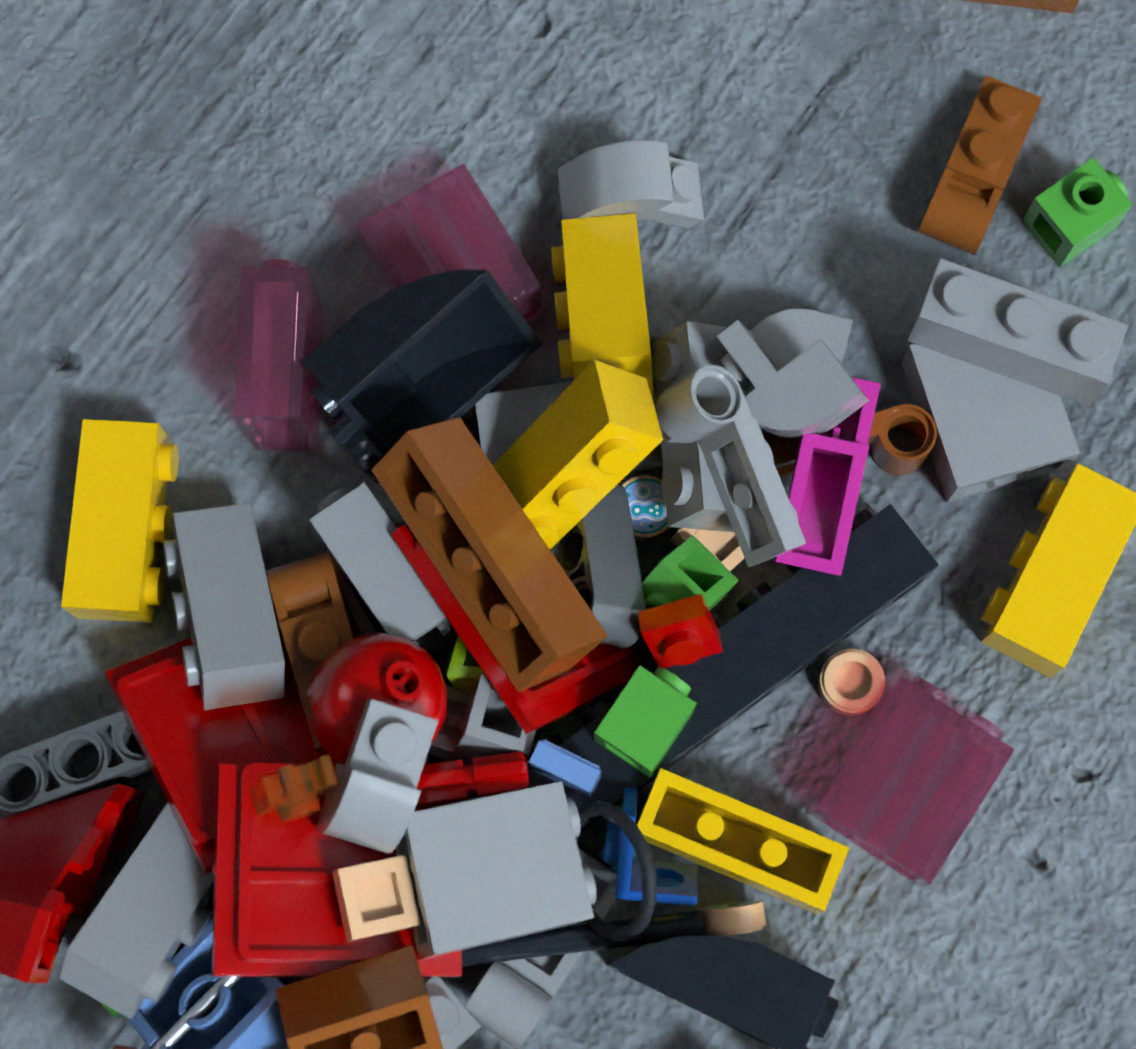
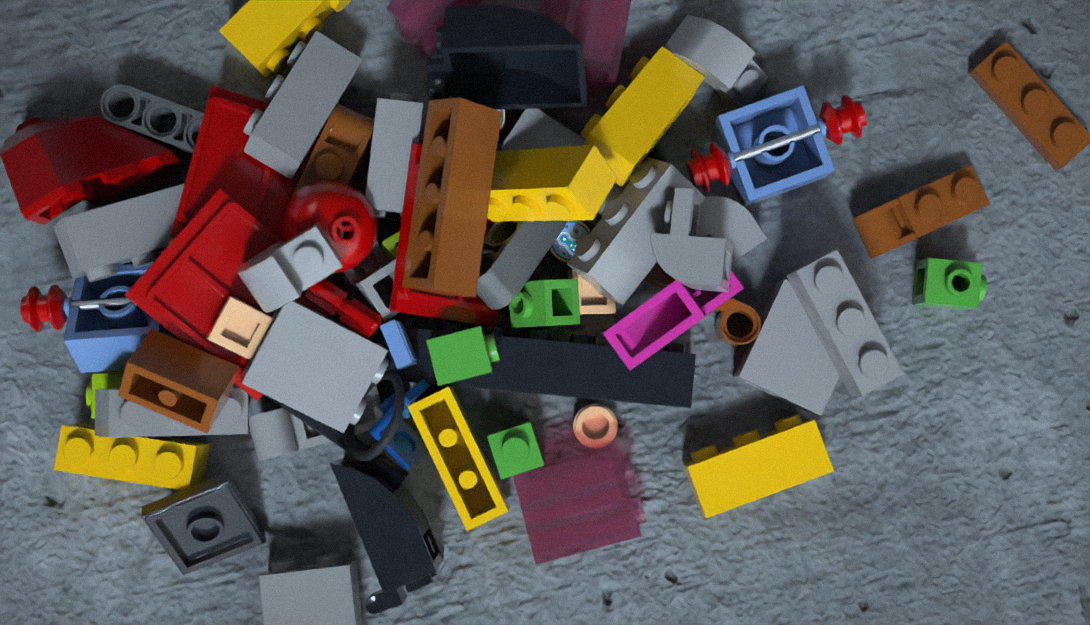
camera: 40 degrees right, 10 degrees up
(295, 790) = (241, 239): clear orange plate -> none
(680, 631) = (521, 325): red plate -> none
(715, 413) = (627, 263): light grey plate -> none
(733, 918) = (424, 490): light nougat tile -> none
(772, 219) = (774, 145): none -> medium blue brick
(792, 779) = (515, 449): none -> bright green brick

